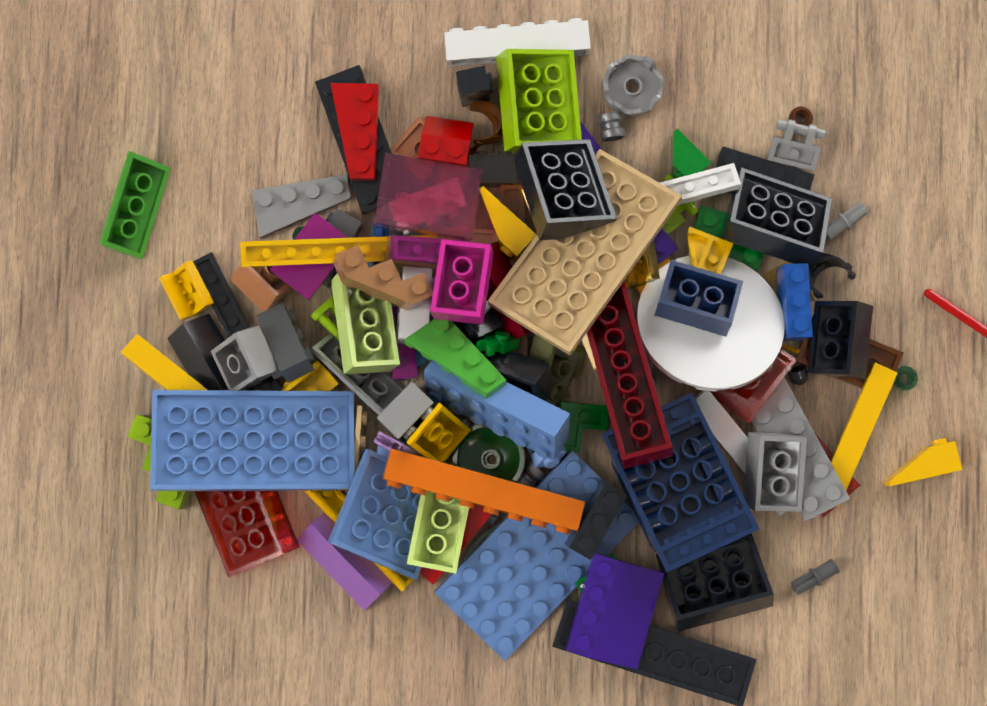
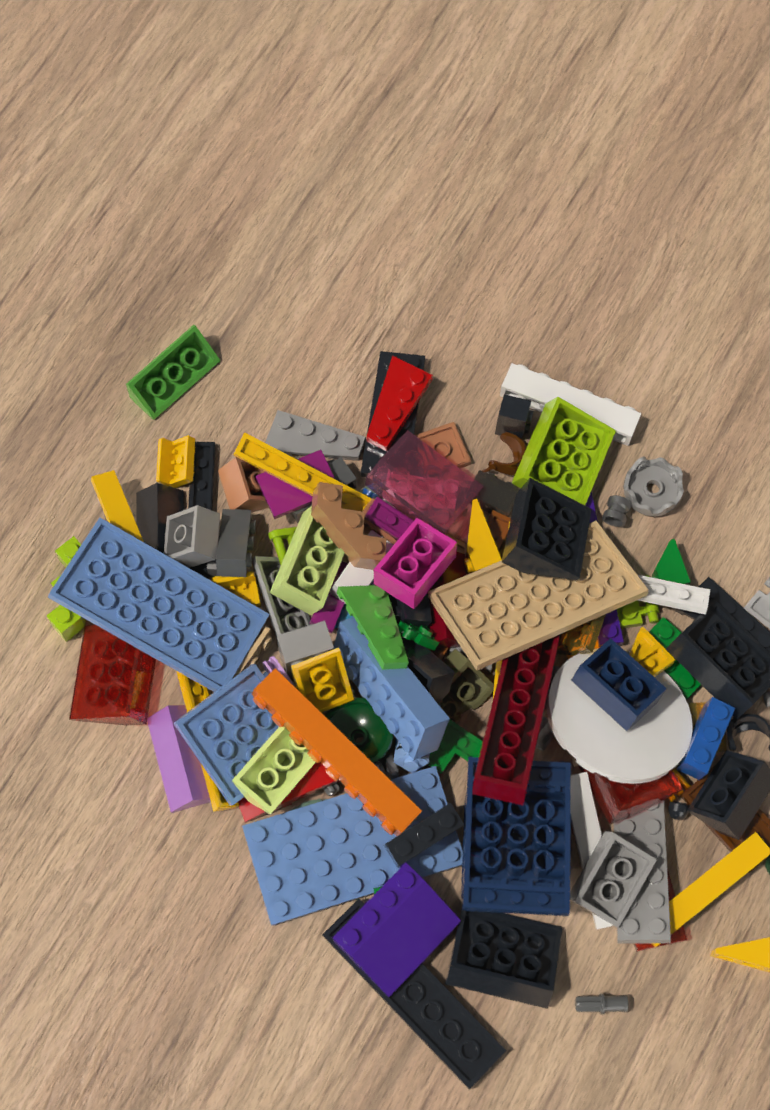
camera: 25 degrees right, 15 degrees down
(446, 141) = (465, 449): red slope -> none

